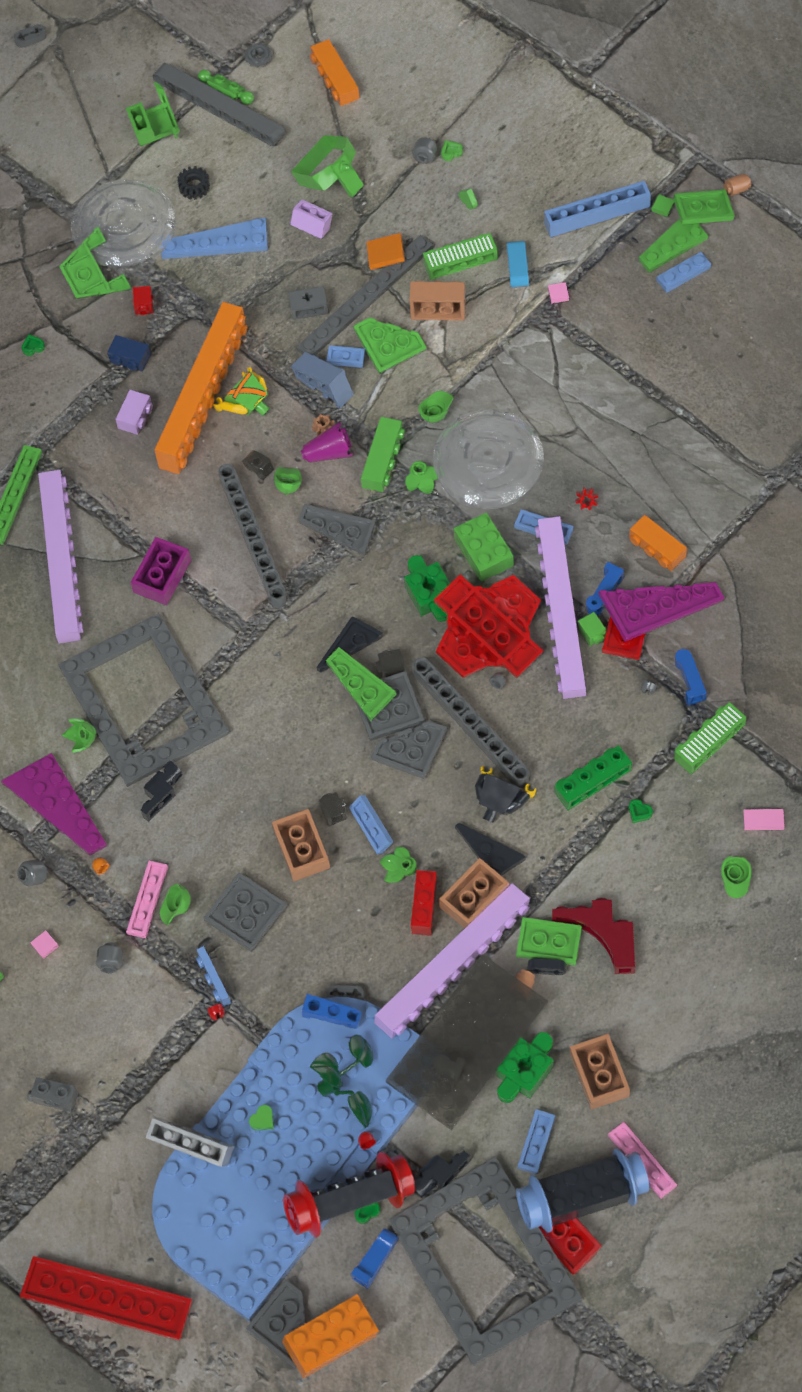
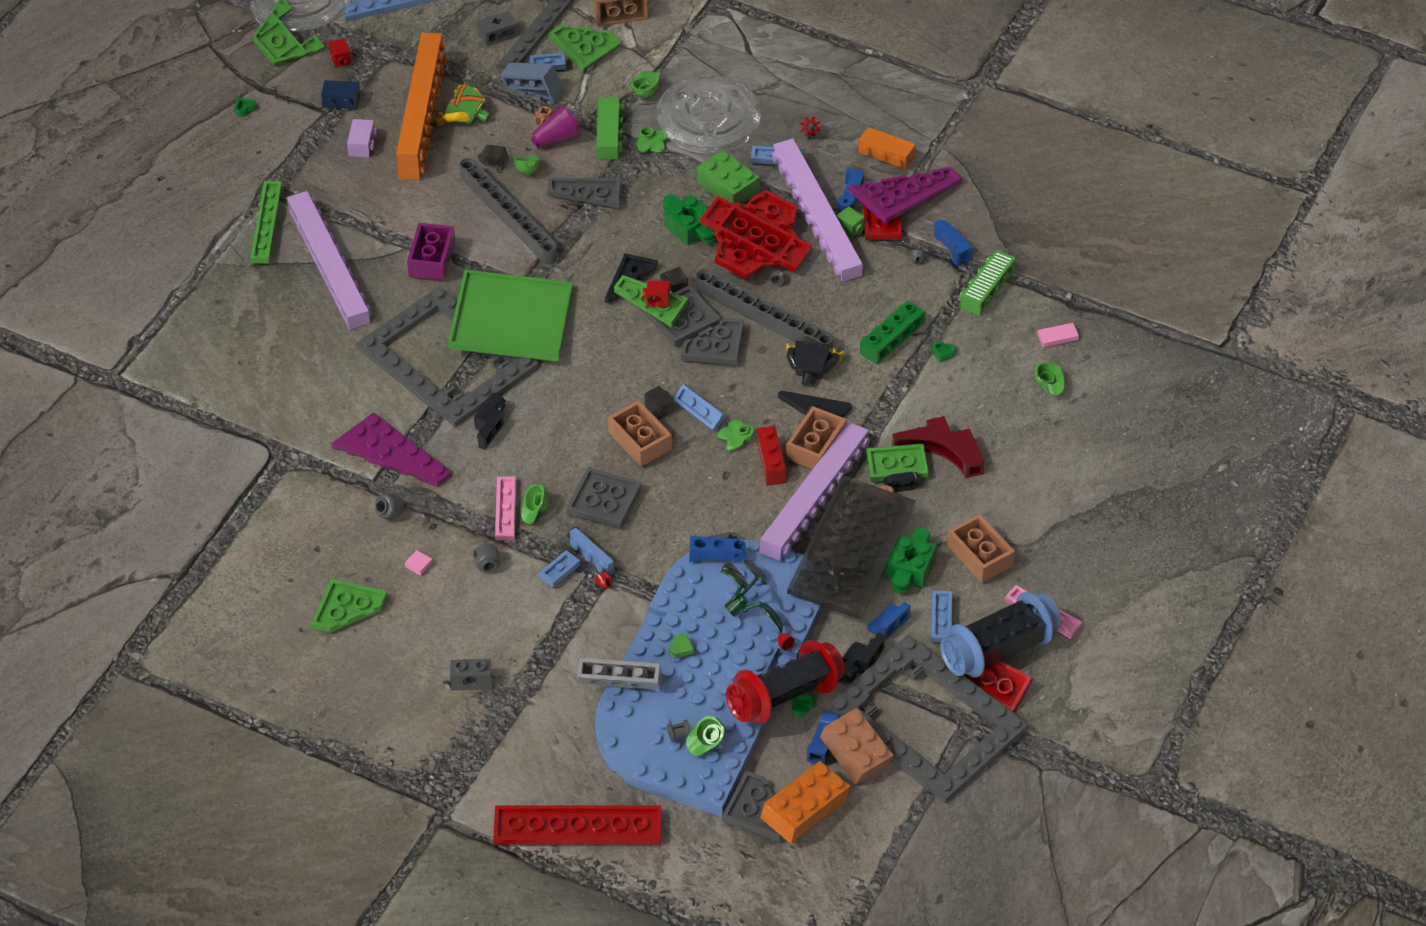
camera: 20 degrees left, 15 degrees down
(81, 733) = (393, 390): bright green piece -> none
(100, 865) = (452, 490): orange hinge -> none
(176, 987) = (559, 569): none -> medium blue plate
(217, 667) = (510, 315): none -> bright green tile
(229, 1222) = (678, 730): none -> dark grey bush
(252, 1237) = (705, 735): none -> bright green piece
(363, 682) = (657, 293): none -> red brick
(400, 1283) = (856, 746): none -> nougat brick
(483, 1132) = (890, 619): none -> blue panel

